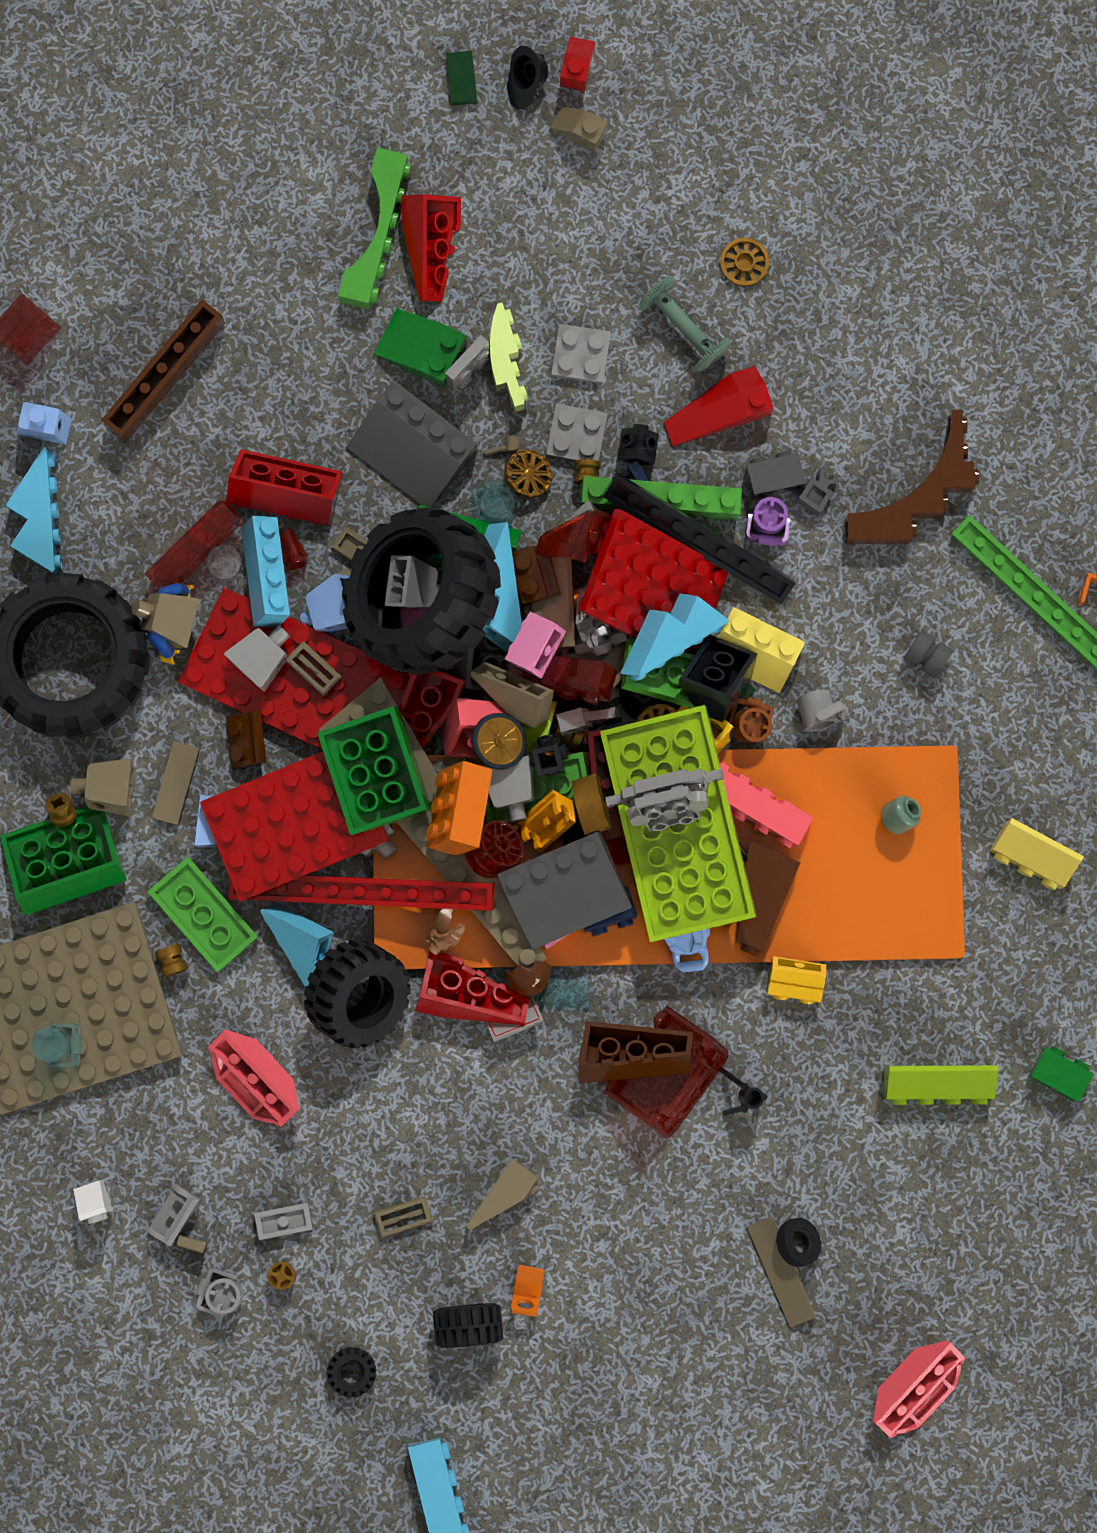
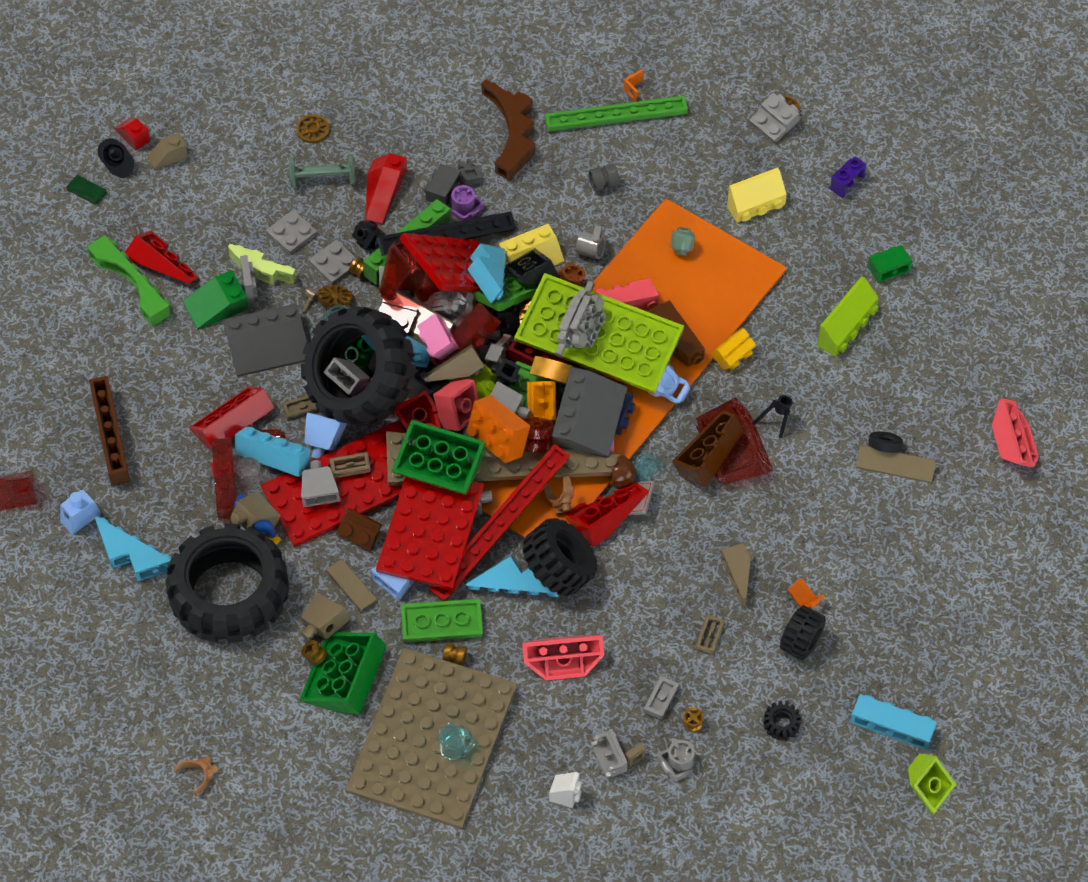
camera: 50 degrees left, 25 degrees down
(499, 741) = (475, 386): pearl gold wheel -> none

